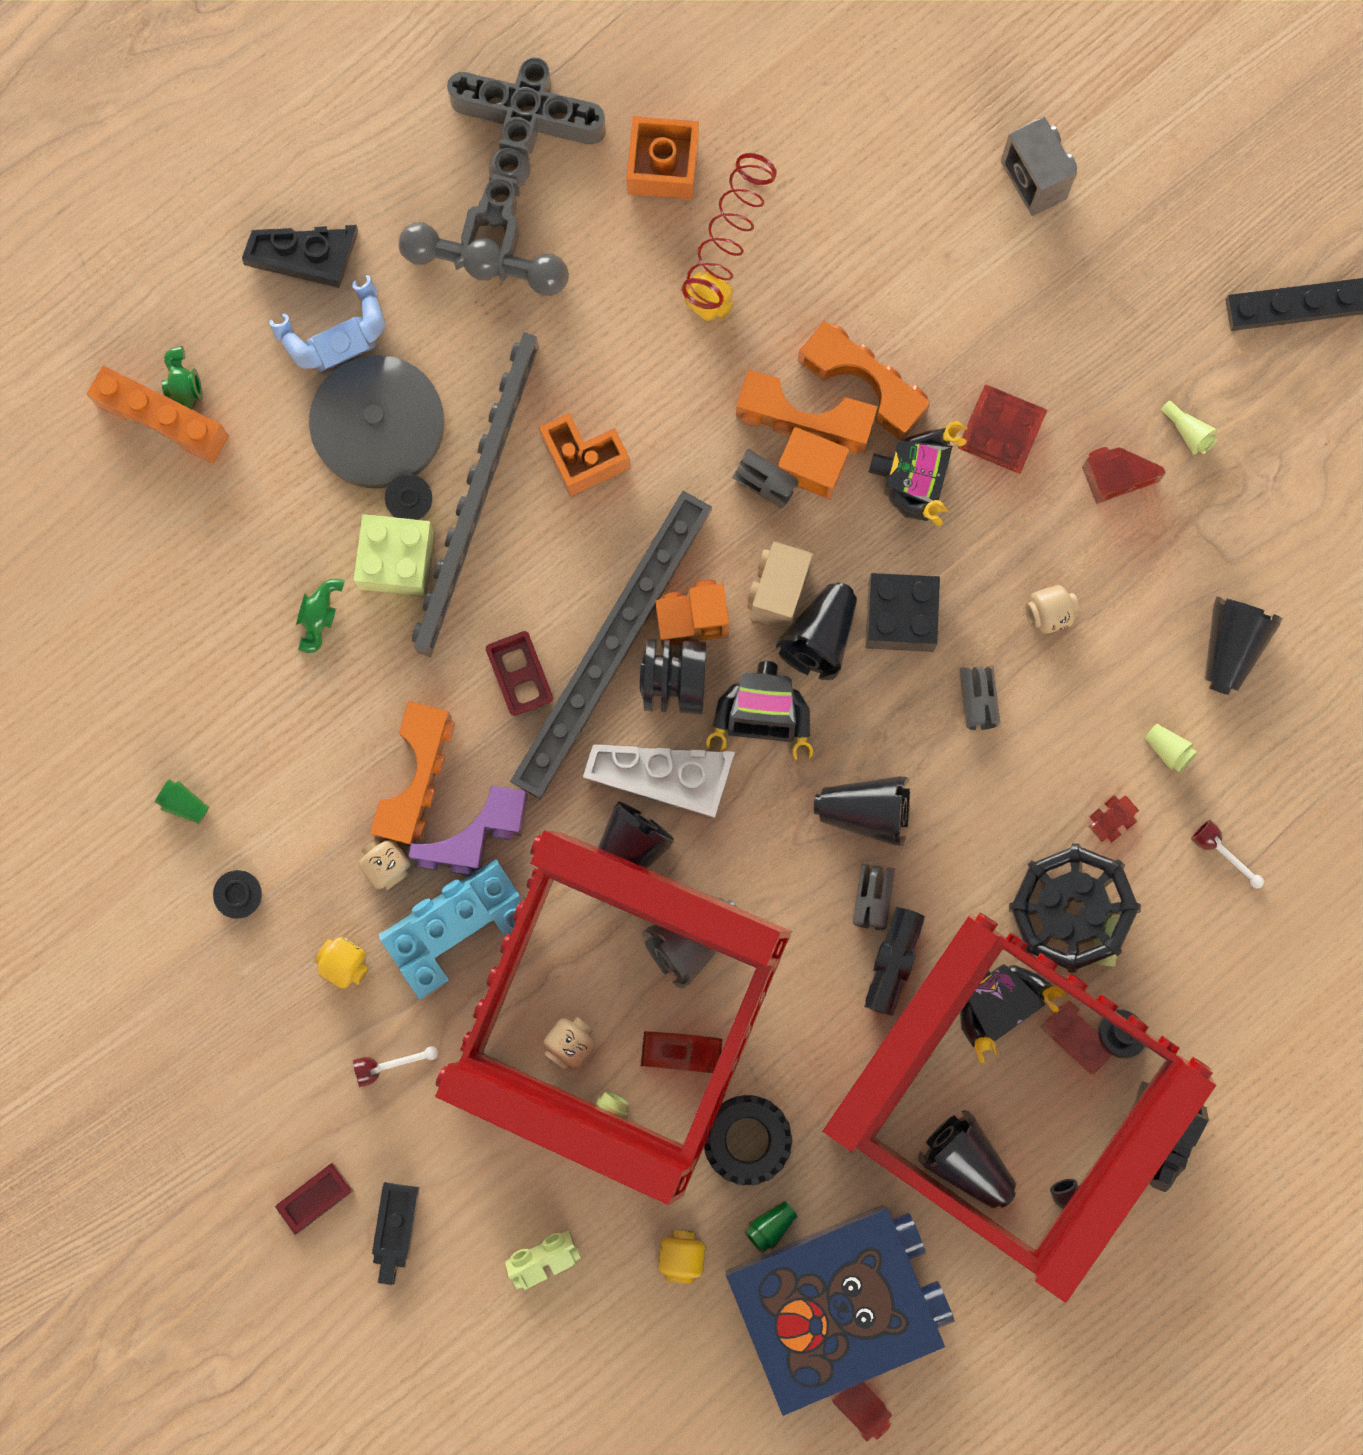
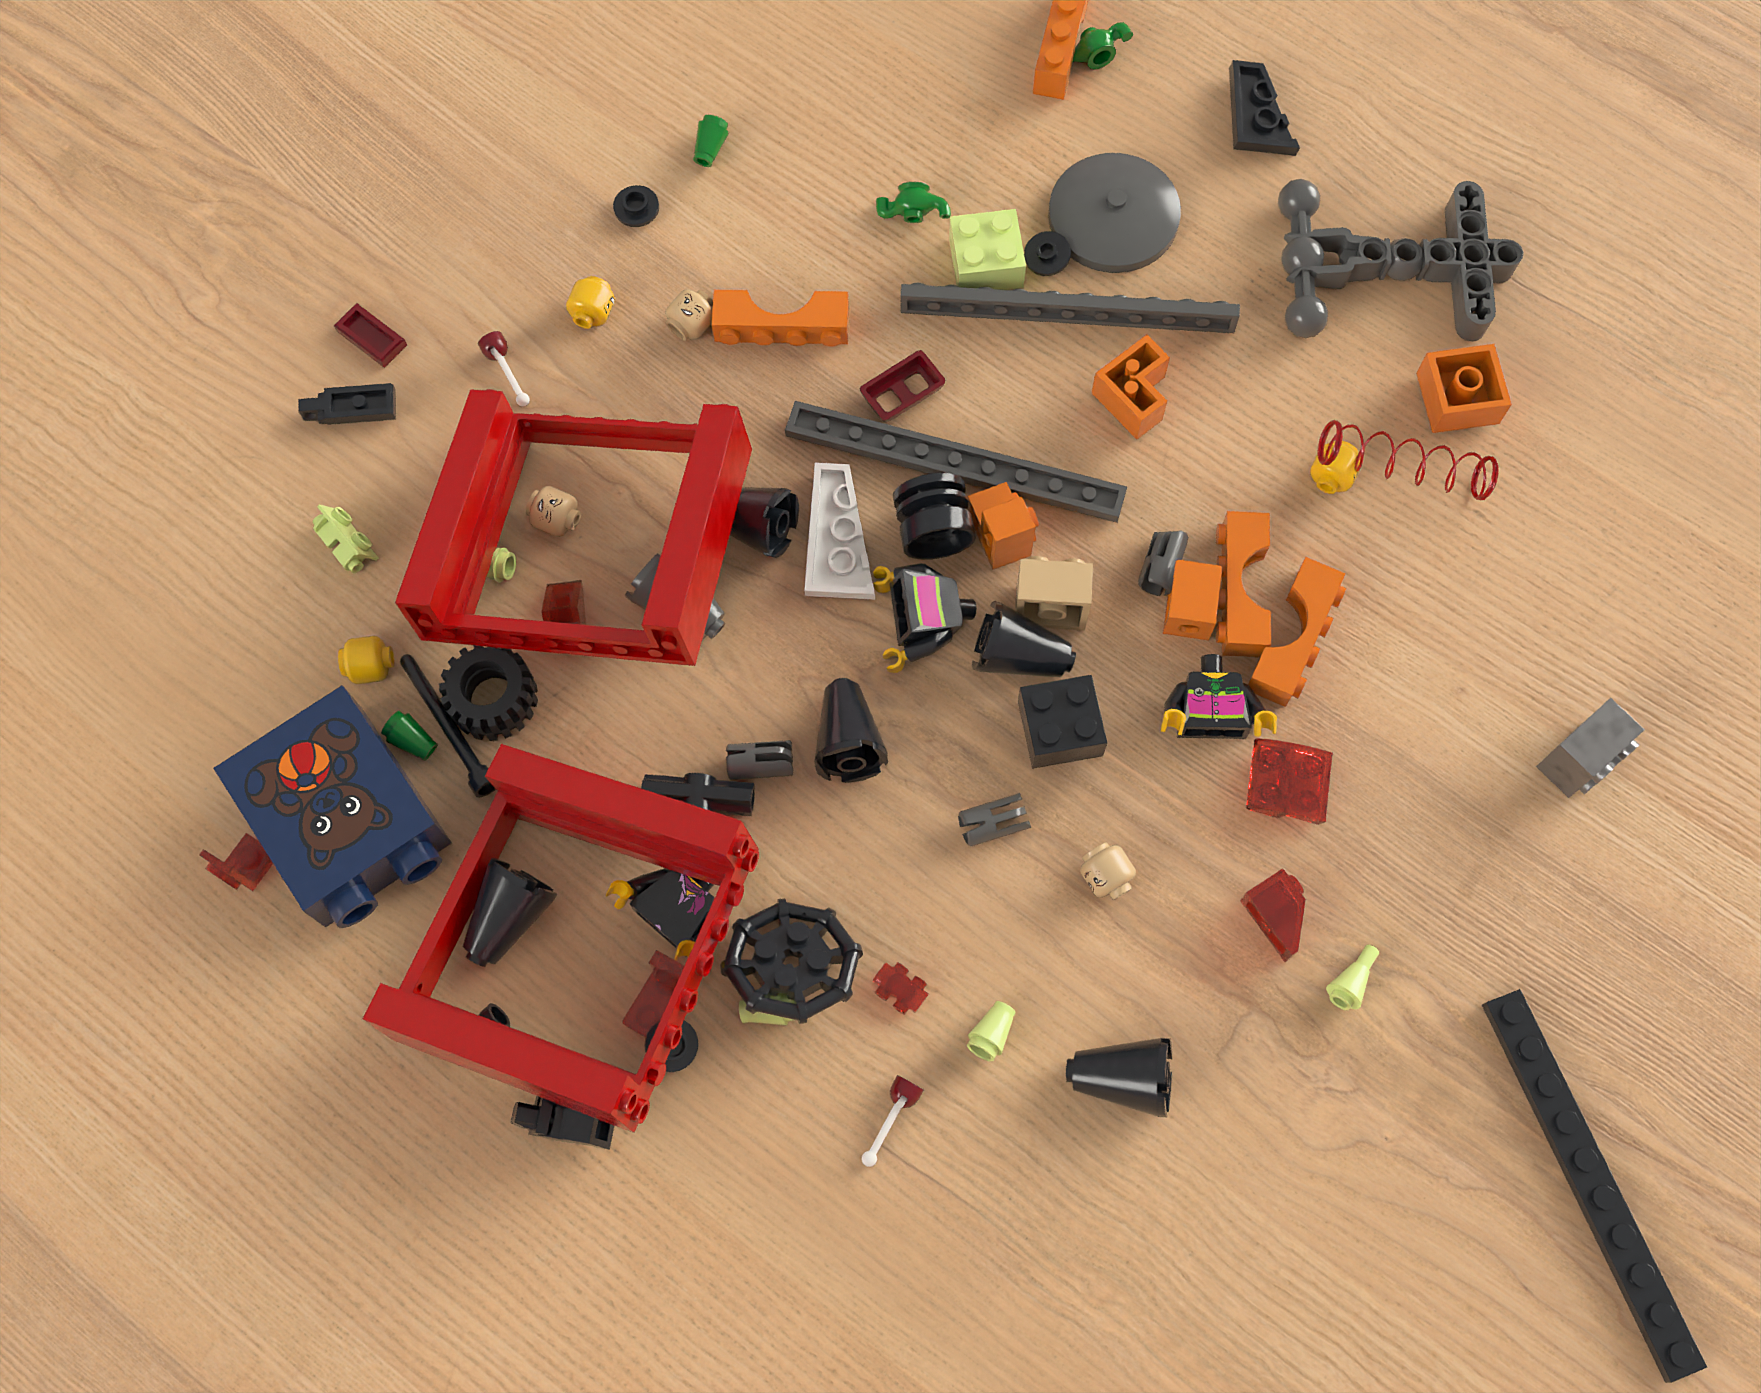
camera: 75 degrees right, 10 degrees down
(339, 342) = (1184, 159): light blue torso -> none
(447, 921) = (643, 373): medium azure bracket -> none
(464, 852) = (758, 399): medium lavender arch -> none
(828, 1164) = (477, 781): none -> black piece

